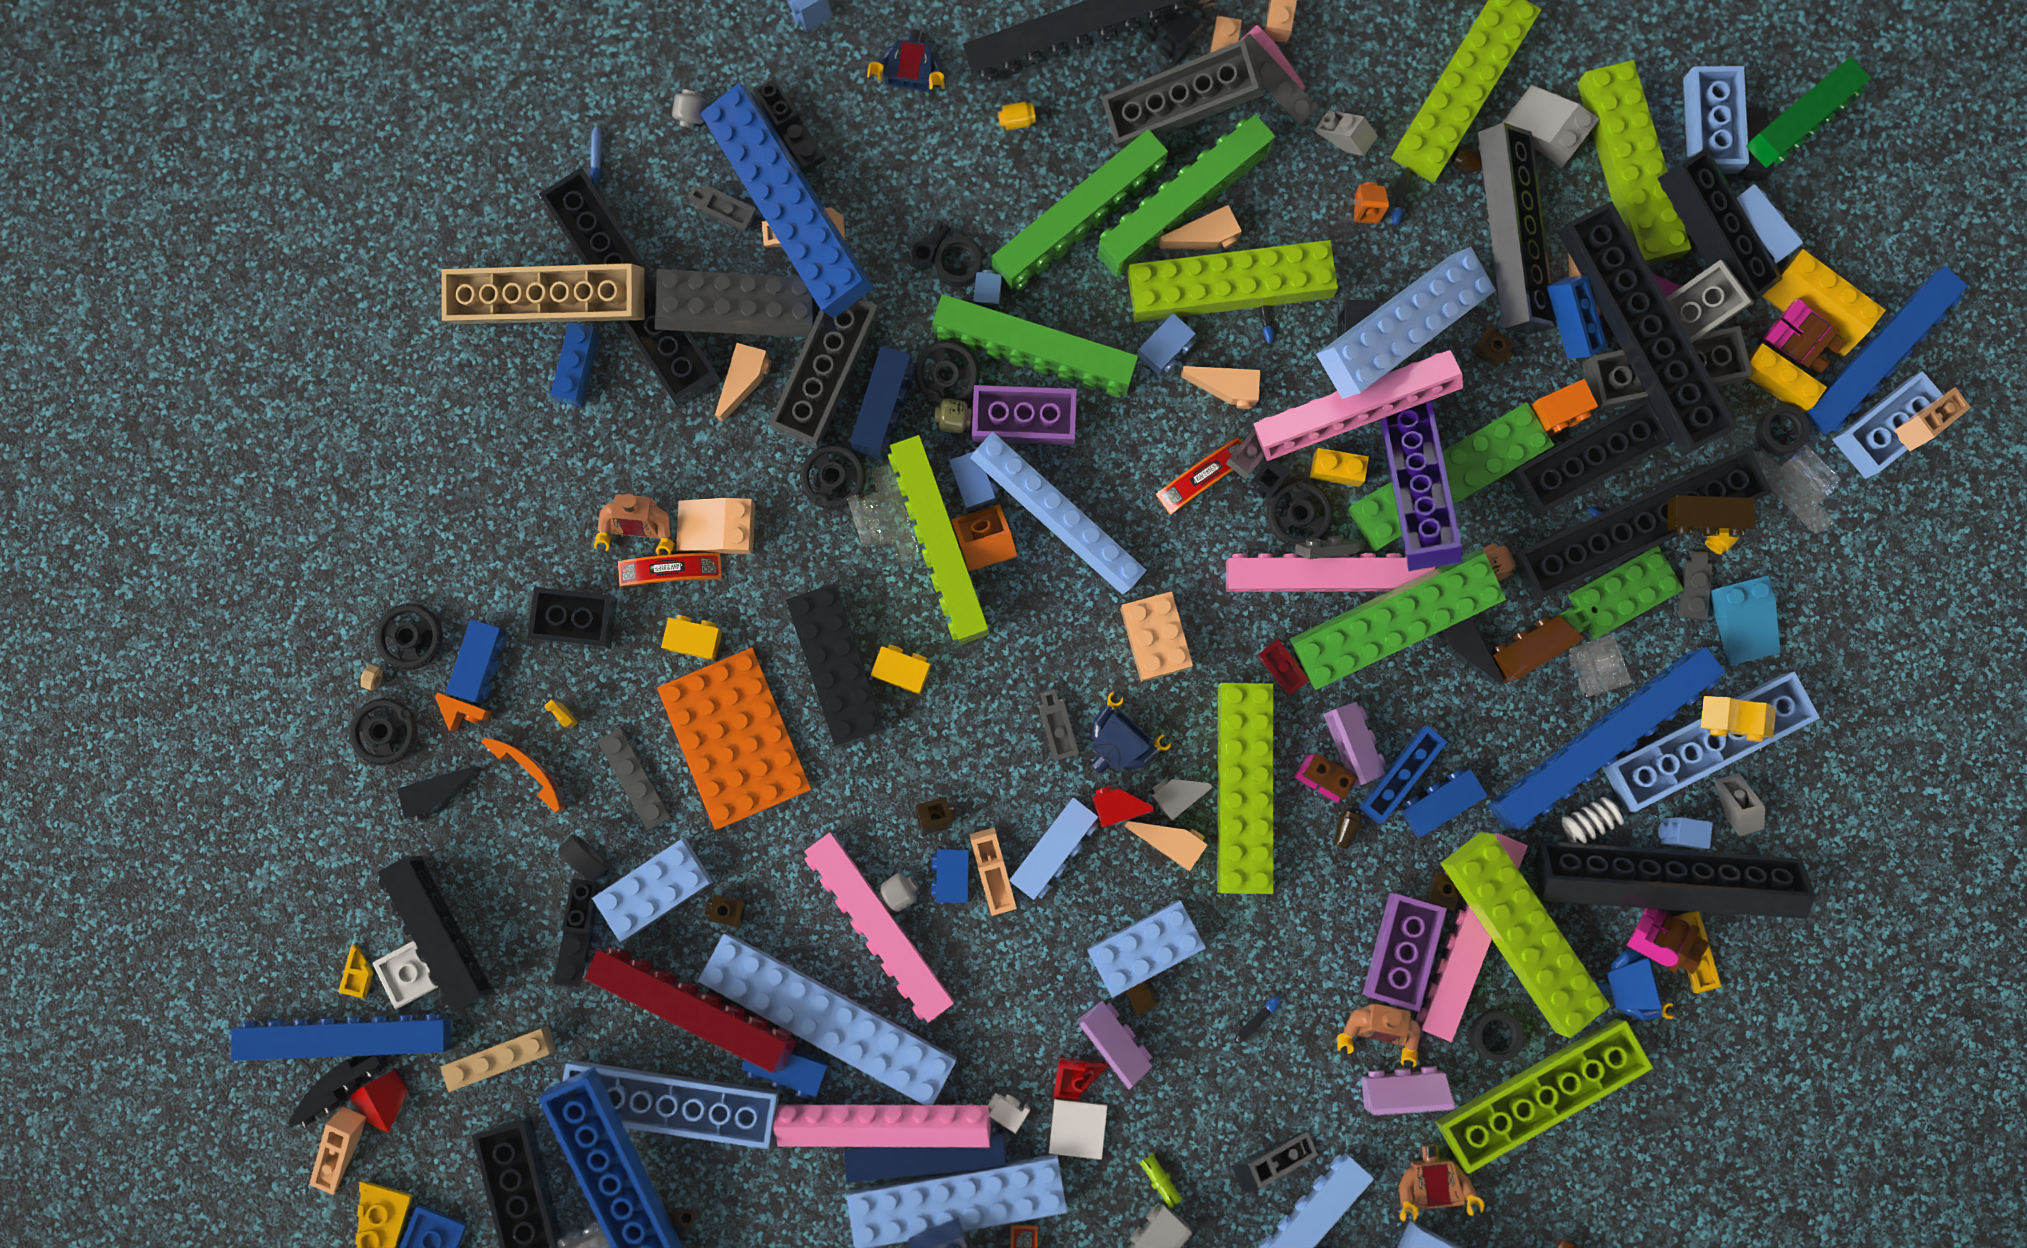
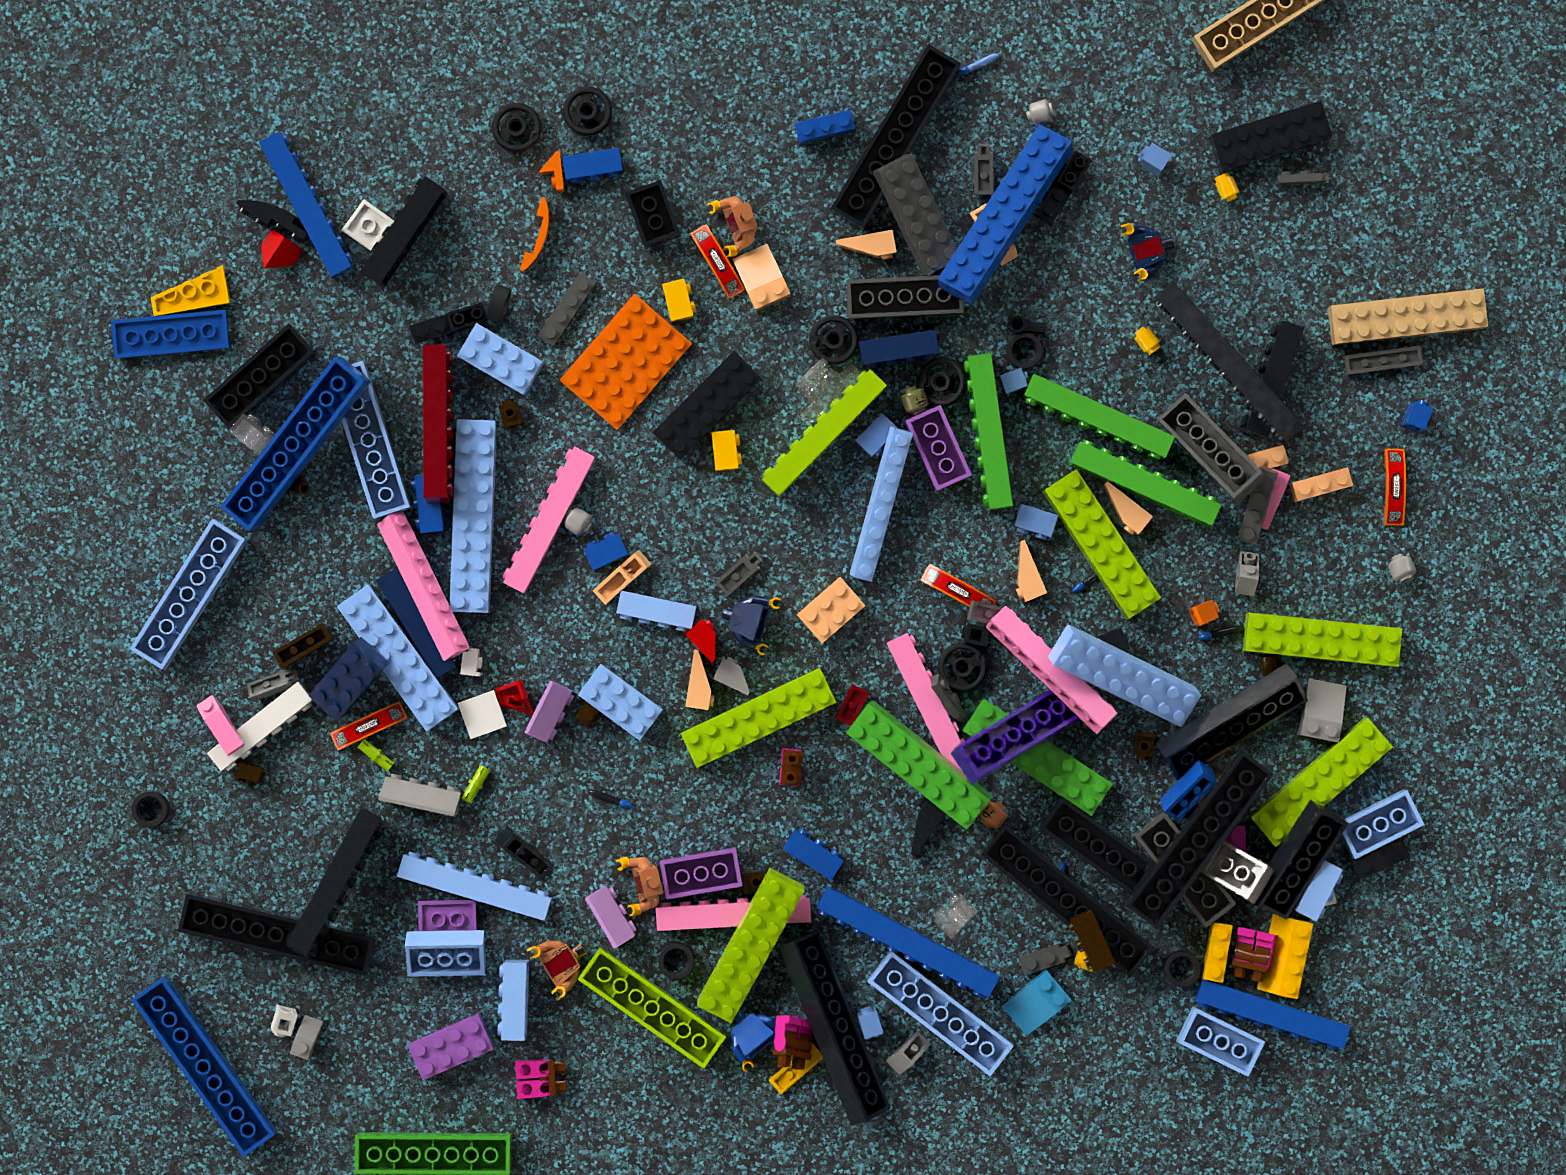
camera: 65 degrees right, 5 degrees up
(336, 1149) = (235, 239): light nougat slope -> none
(356, 975) = (351, 193): yellow tile -> none
(371, 677) = (548, 100): tan tile -> none
(432, 794) = (490, 180): black slope -> none
(498, 1059) = (343, 314): tan brick -> none
(543, 294) = (859, 84): tan brick -> none
(562, 714) = (586, 240): yellow tile -> none
(927, 810) = (642, 515): dark brown brick -> none
(984, 537) = (842, 462): orange slope -> none
(1339, 467) = (1007, 678): yellow brick -> none
(1347, 828) = (765, 798): dark brown cone -> none
(1355, 743) = (824, 777): lavender slope -> none
(1402, 774) = (818, 817): blue brick -> none
(1534, 647) = (946, 865): reddish brown slope -> none
(1564, 408) = (1119, 809): orange brick -> none
(1591, 819) = (849, 958): white piece -> none
(1622, 594) = (1012, 909): bright green hinge -> none
(1739, 718) = (962, 1020): yellow brick -> none
(1801, 484) = (1150, 996): clear plate -> none
(1808, 112) = (1414, 884): green brick -> none
(1932, 419) = (1232, 1061): light nougat slope -> none

